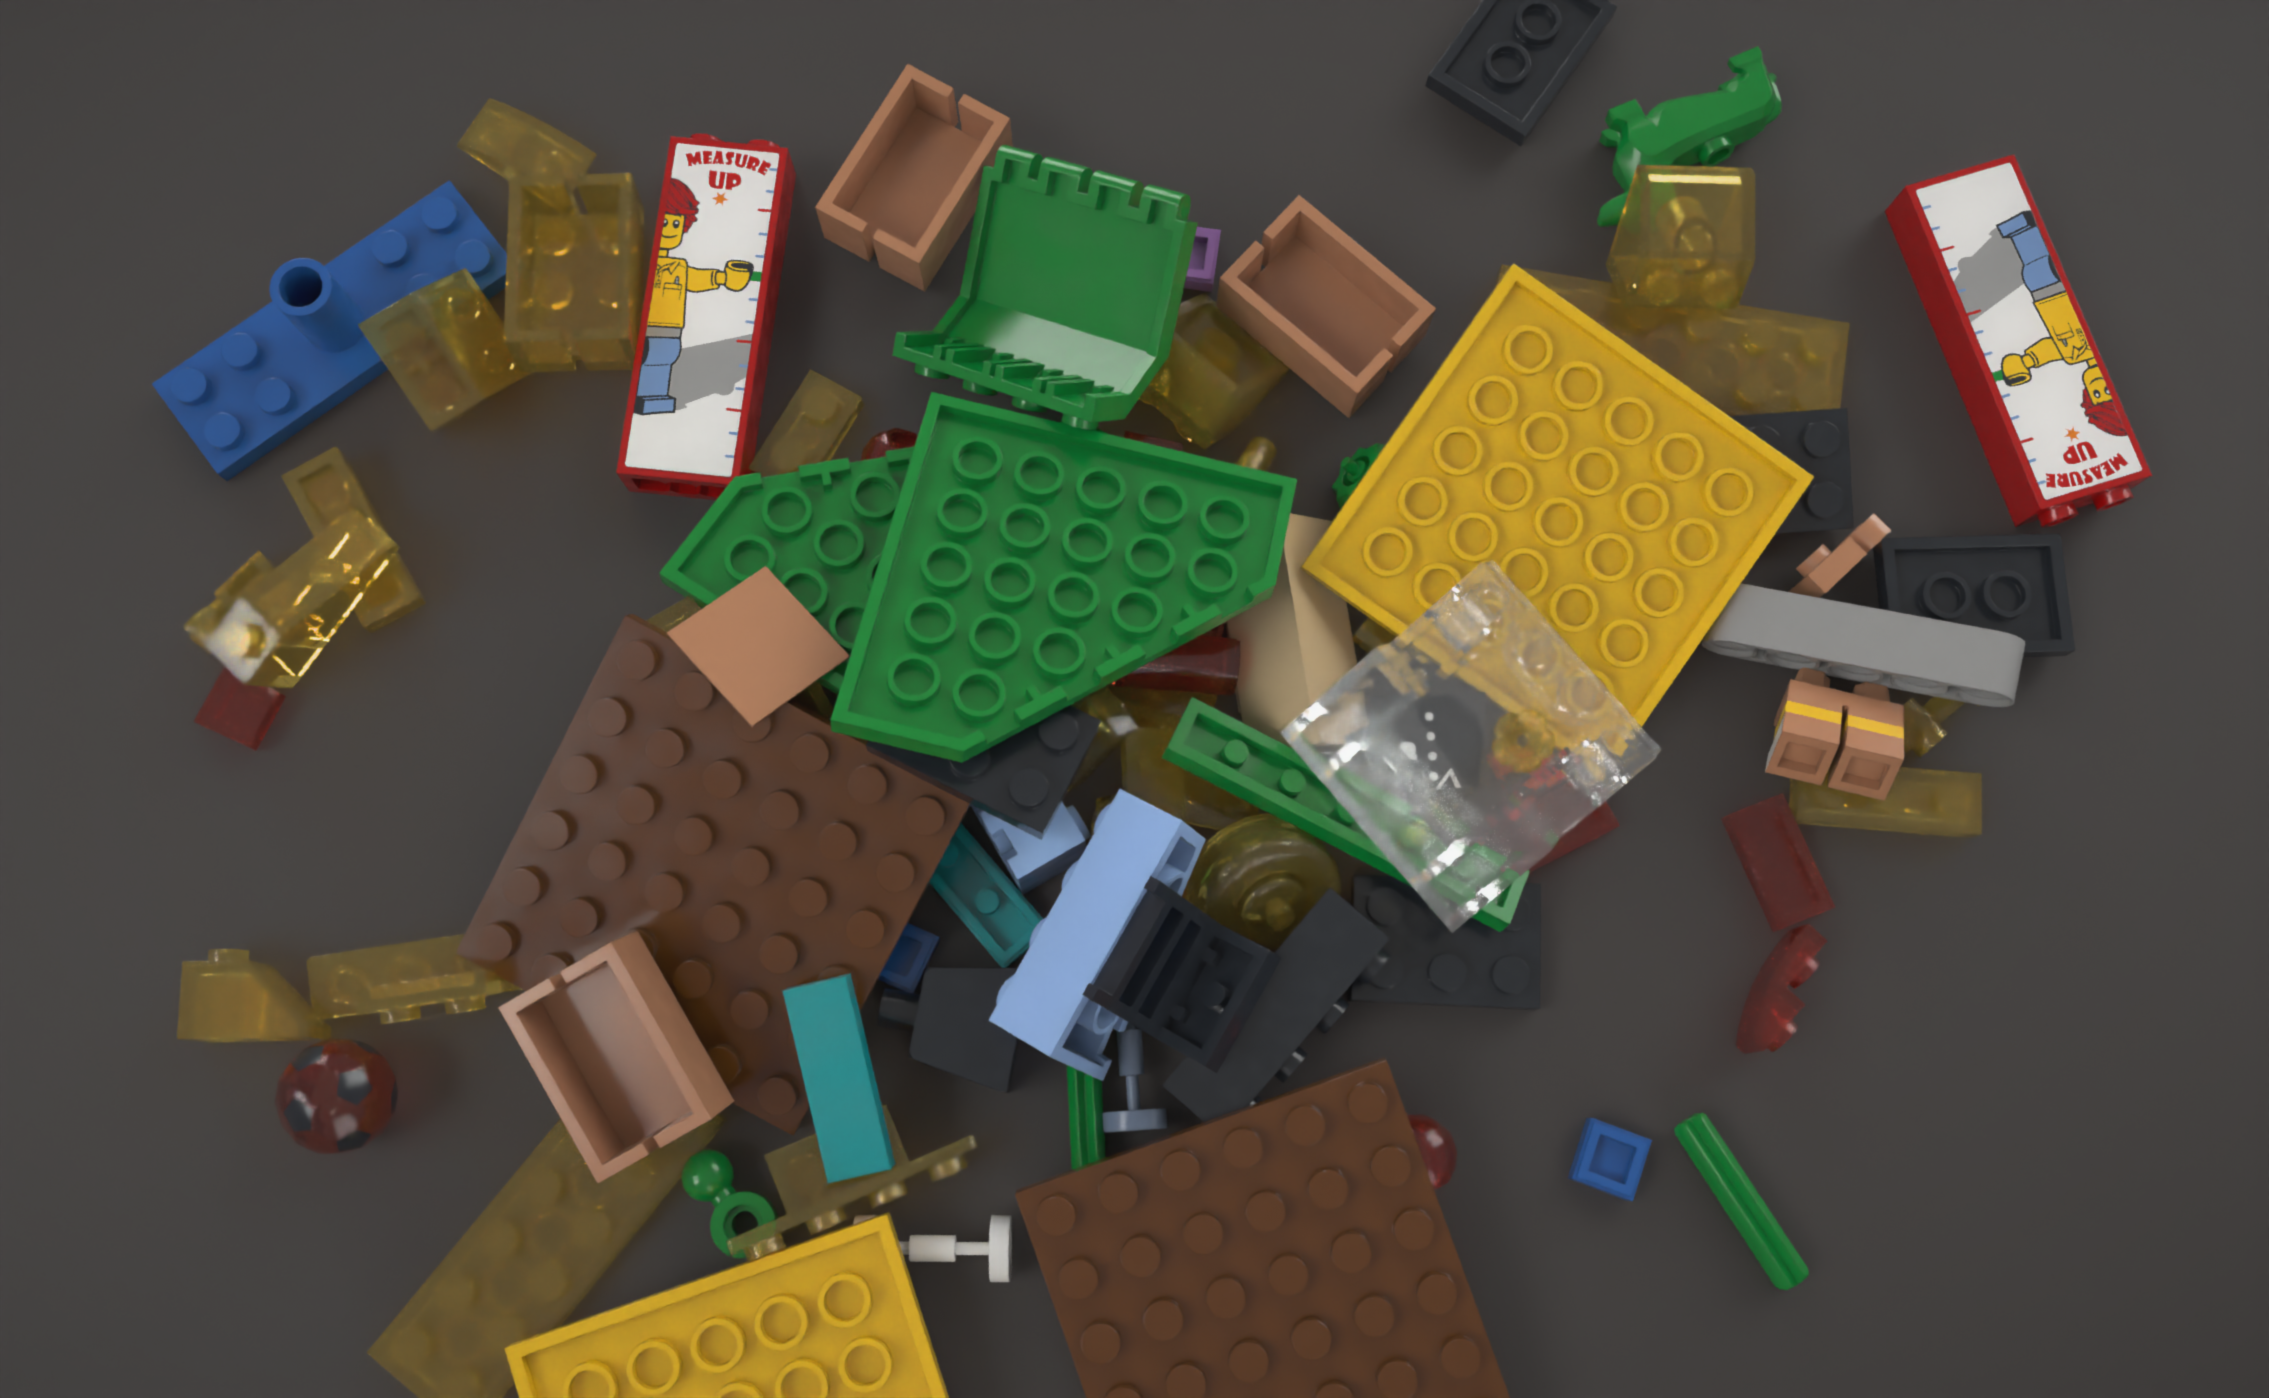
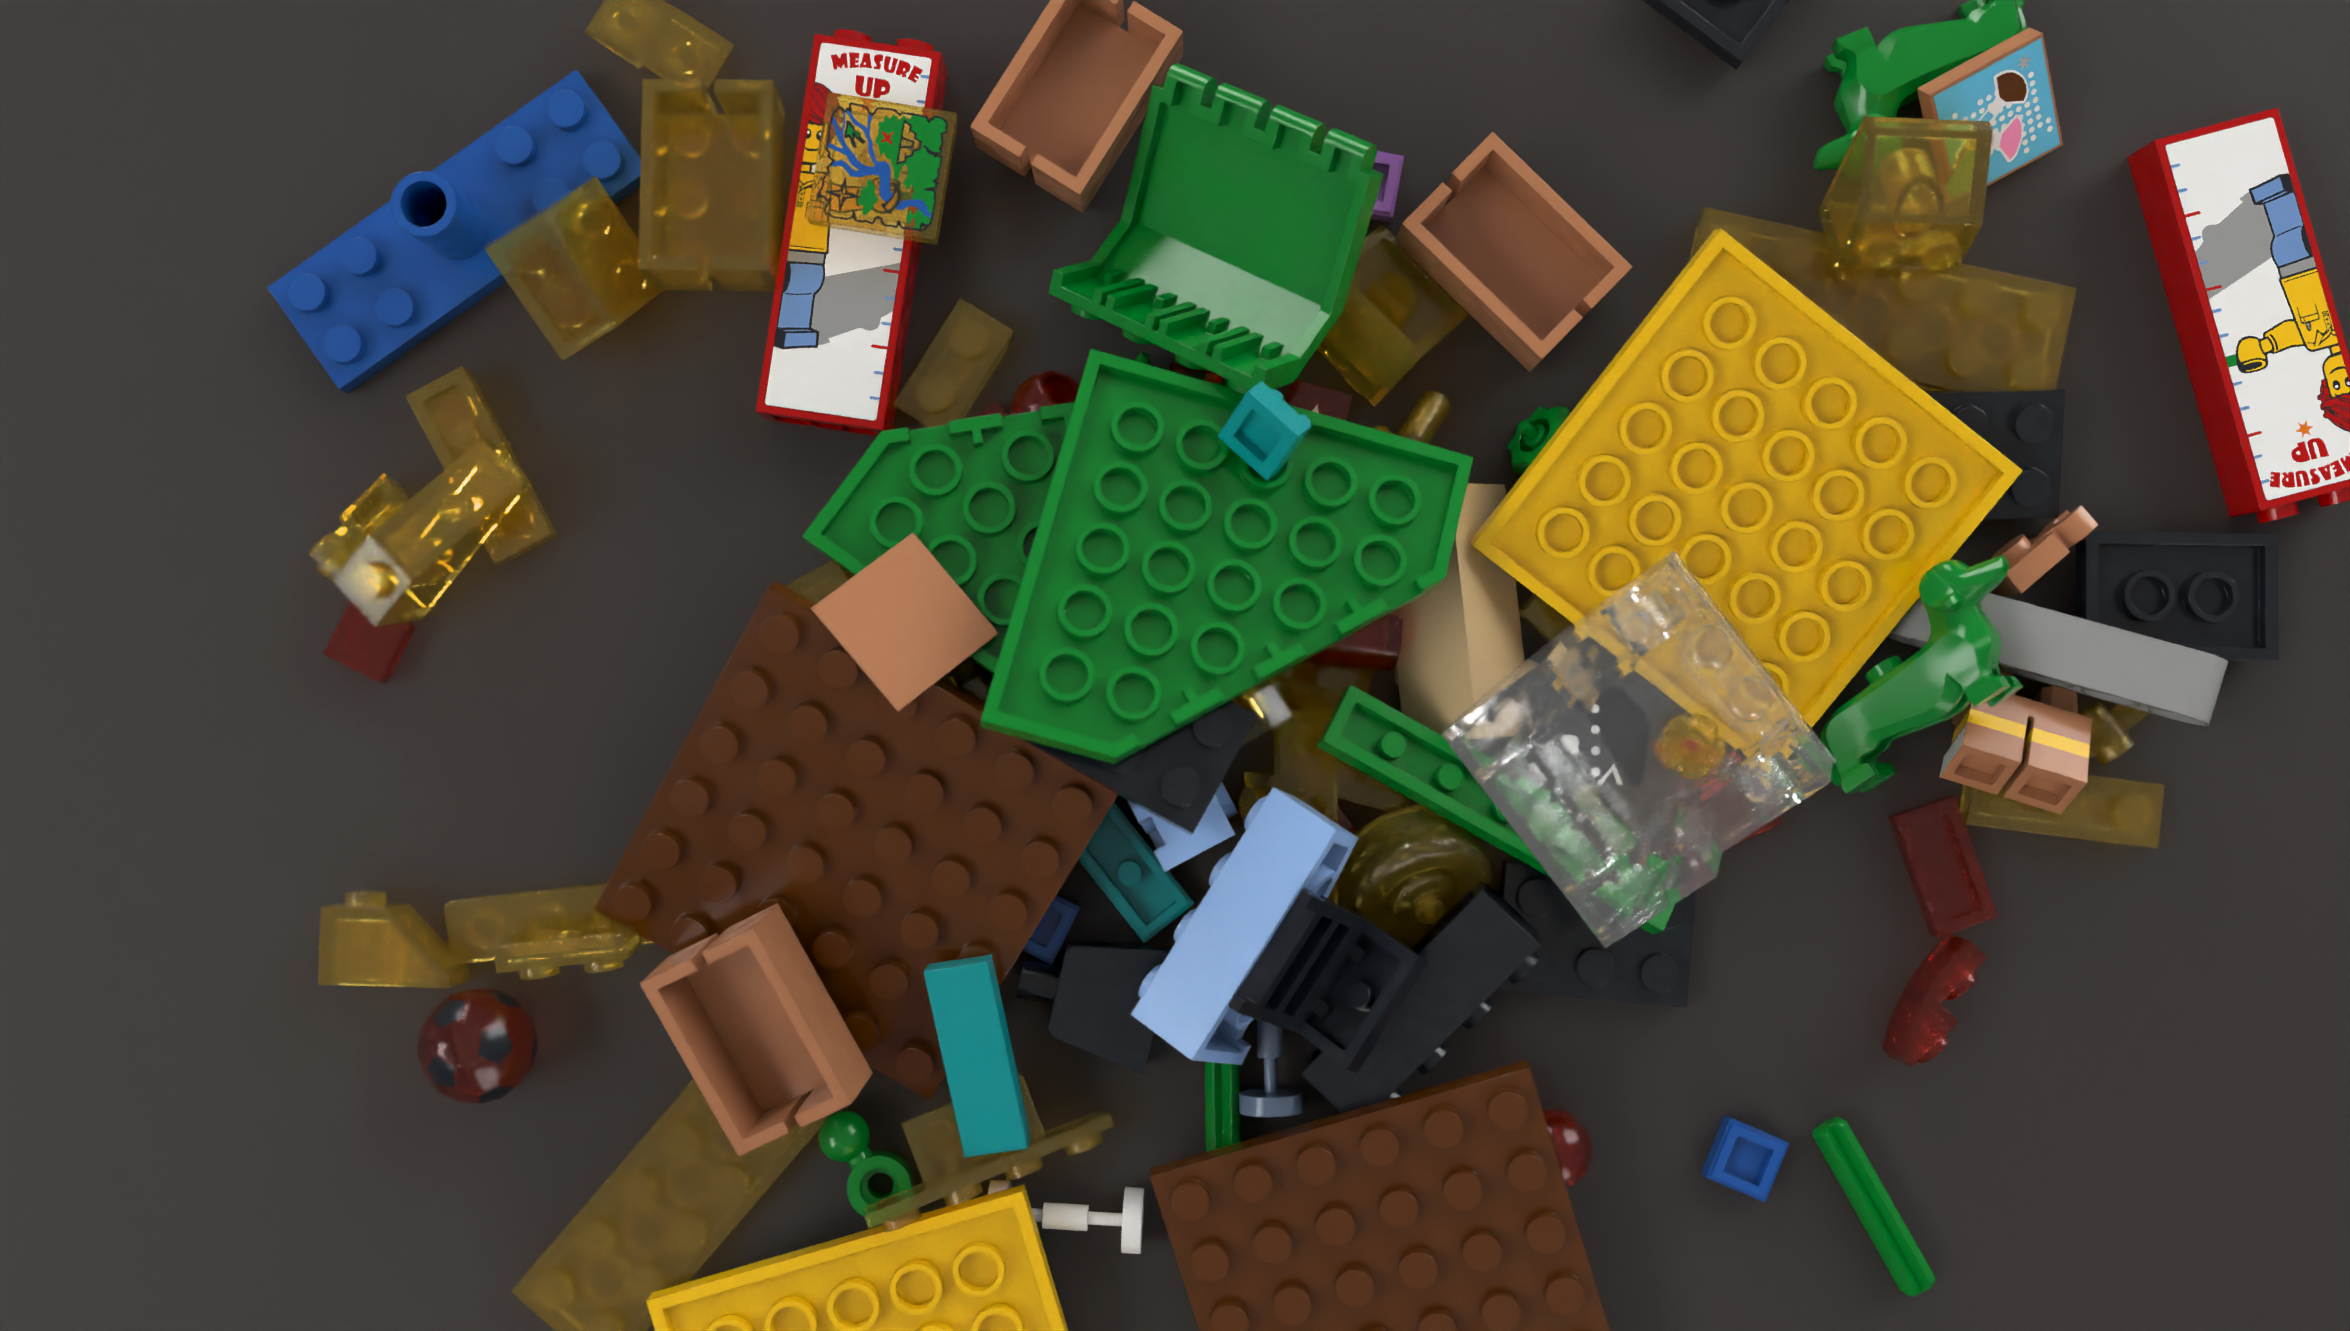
camera: 10 degrees right, 10 degrees up
(734, 248) = (882, 168): none -> tile
(1097, 453) = (1264, 430): none -> teal tile
(1745, 678) = (1931, 685): none -> green animal
(1776, 148) = (2011, 91): none -> tile

